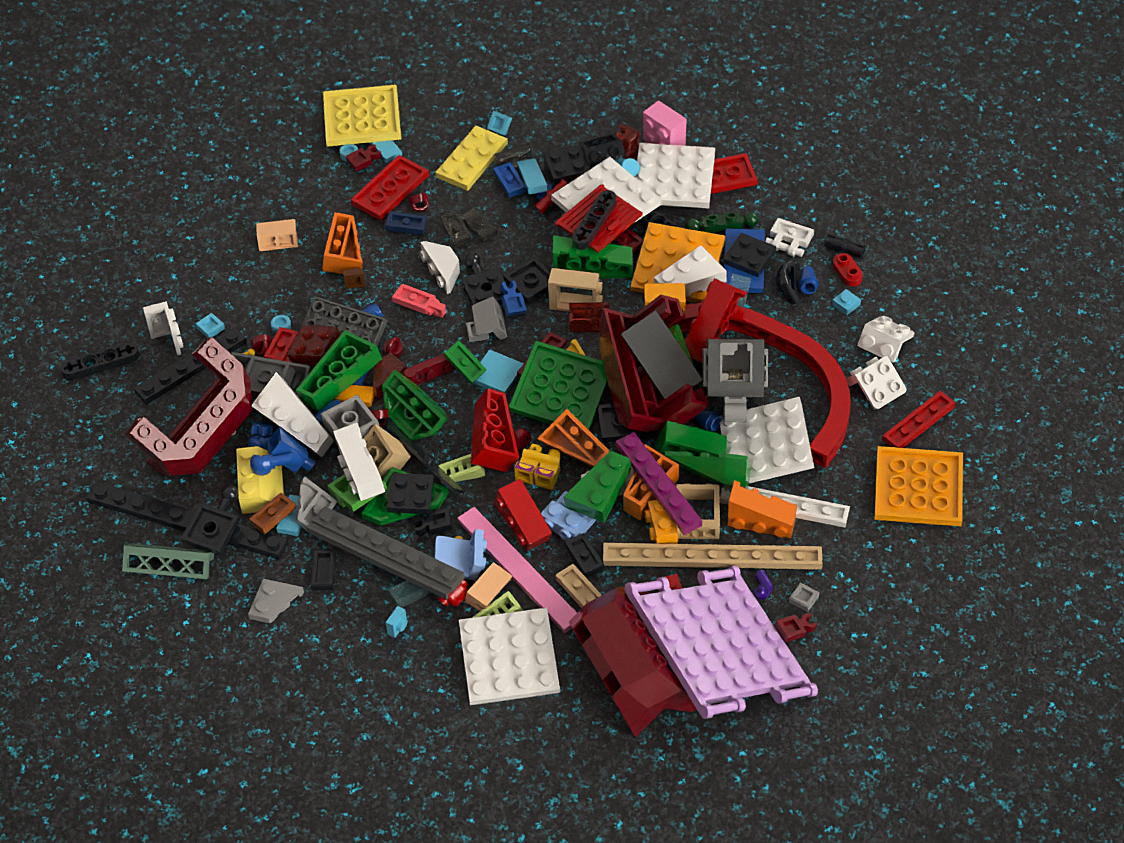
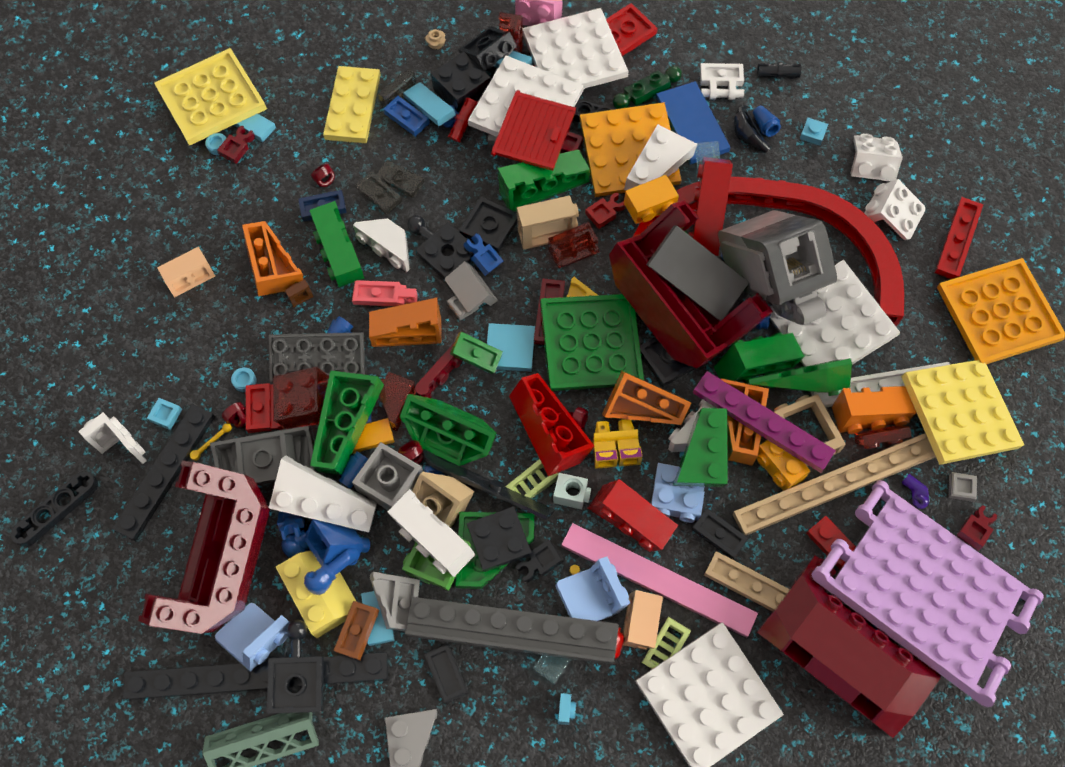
camera: 25 degrees left, 15 degrees up
(197, 489) = (252, 636): none -> light blue bracket
(389, 187) = (282, 170): red plate -> none
(394, 346) = (383, 361): dark red tile -> none
(401, 252) = (336, 244): none -> green wedge
(424, 327) = (406, 324): none -> orange wedge
(478, 481) = (565, 482): none -> light aqua brick
(499, 123) = (362, 54): medium azure plate -> none
(567, 130) = (435, 39): none -> tan plate
(591, 218) = (533, 134): black beam -> none
(629, 301) = (604, 212): none -> red plate
(631, 166) = (530, 57): medium azure tile -> none
(748, 535) = (872, 438): none -> clear red plate
(749, 254) = (698, 114): black plate -> none
(834, 541) = (961, 411): none -> light yellow plate
(847, 269) = (793, 95): red plate -> none

